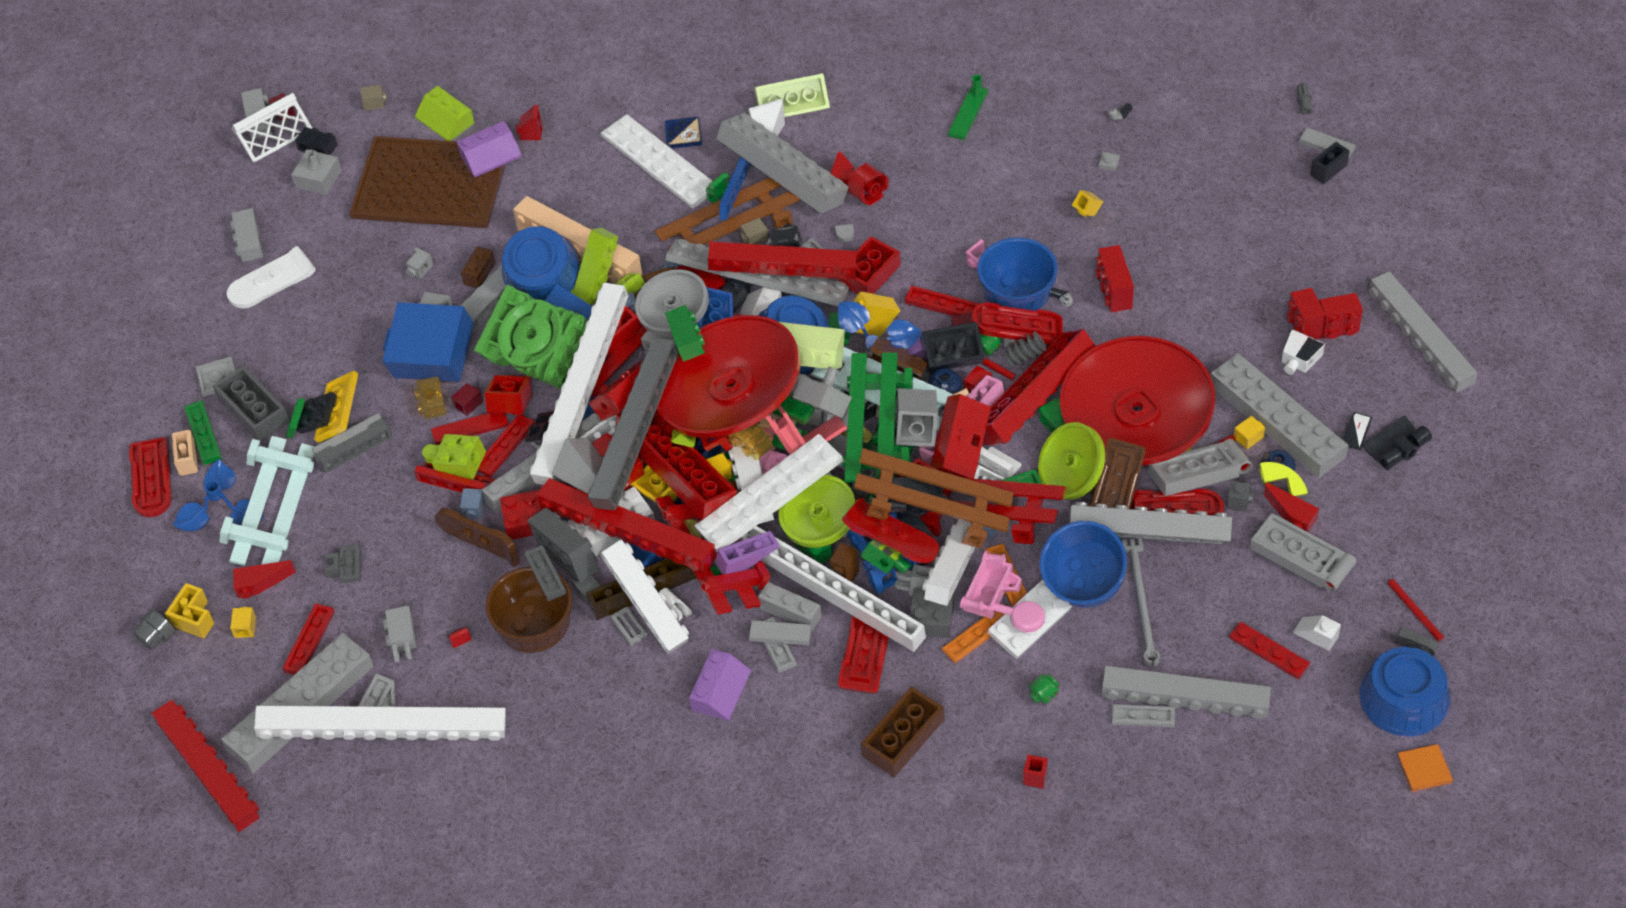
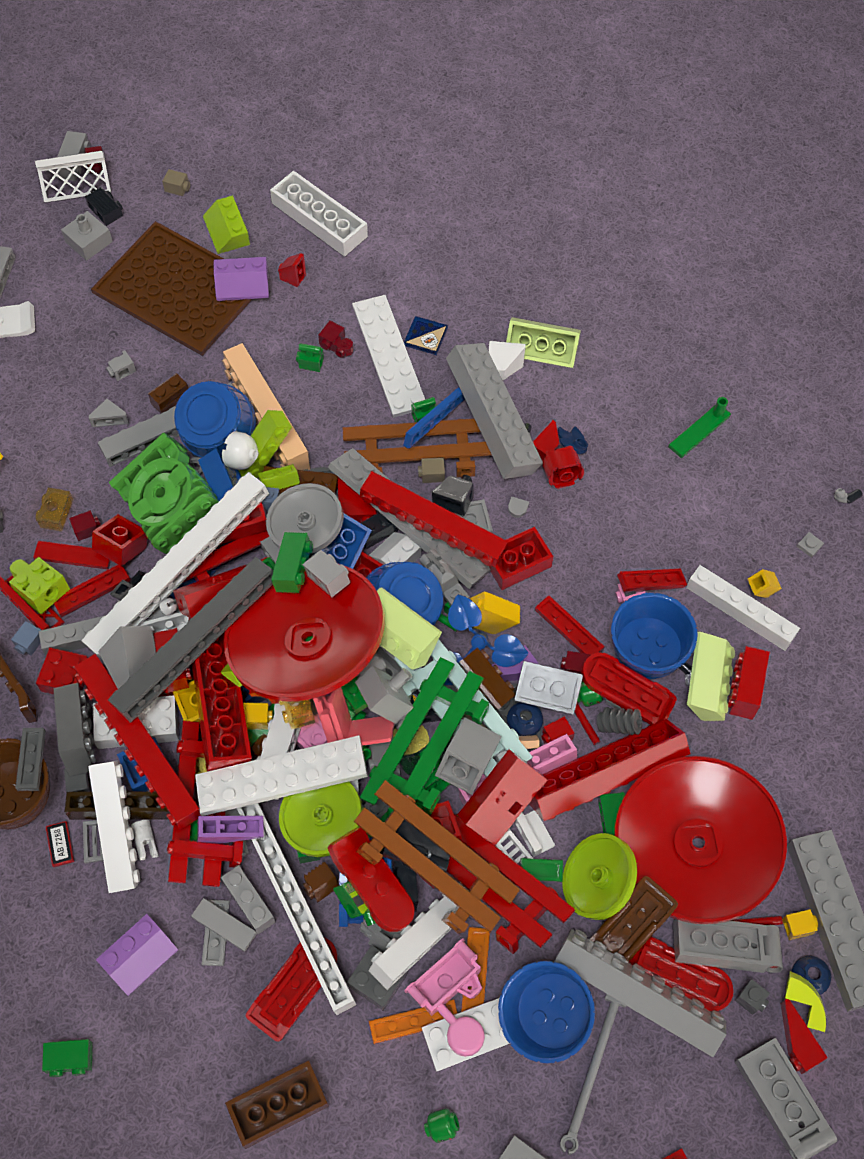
camera: 20 degrees right, 10 degrees up
(428, 341) = (76, 454): blue container -> none
(526, 70) = (319, 213): none -> white brick
(582, 276) = (240, 451): none -> white cylinder
(589, 419) = (167, 606): none -> white hinge
(590, 188) = (310, 357): none -> green brick
(600, 166) = (333, 338): none -> dark red brick
(600, 640) = (60, 844): none -> tile
(706, 779) = (67, 1057): none -> green brick
(721, 325) = (327, 573): none -> light grey brick
(820, 300) = (445, 576): none -> light grey plate
(861, 159) = (573, 438): none -> dark blue plate
(988, 237) = (652, 579): none -> red tile
(1079, 228) = (742, 607): none -> white brick
(1082, 287) = (710, 677): none -> yellowish green slope

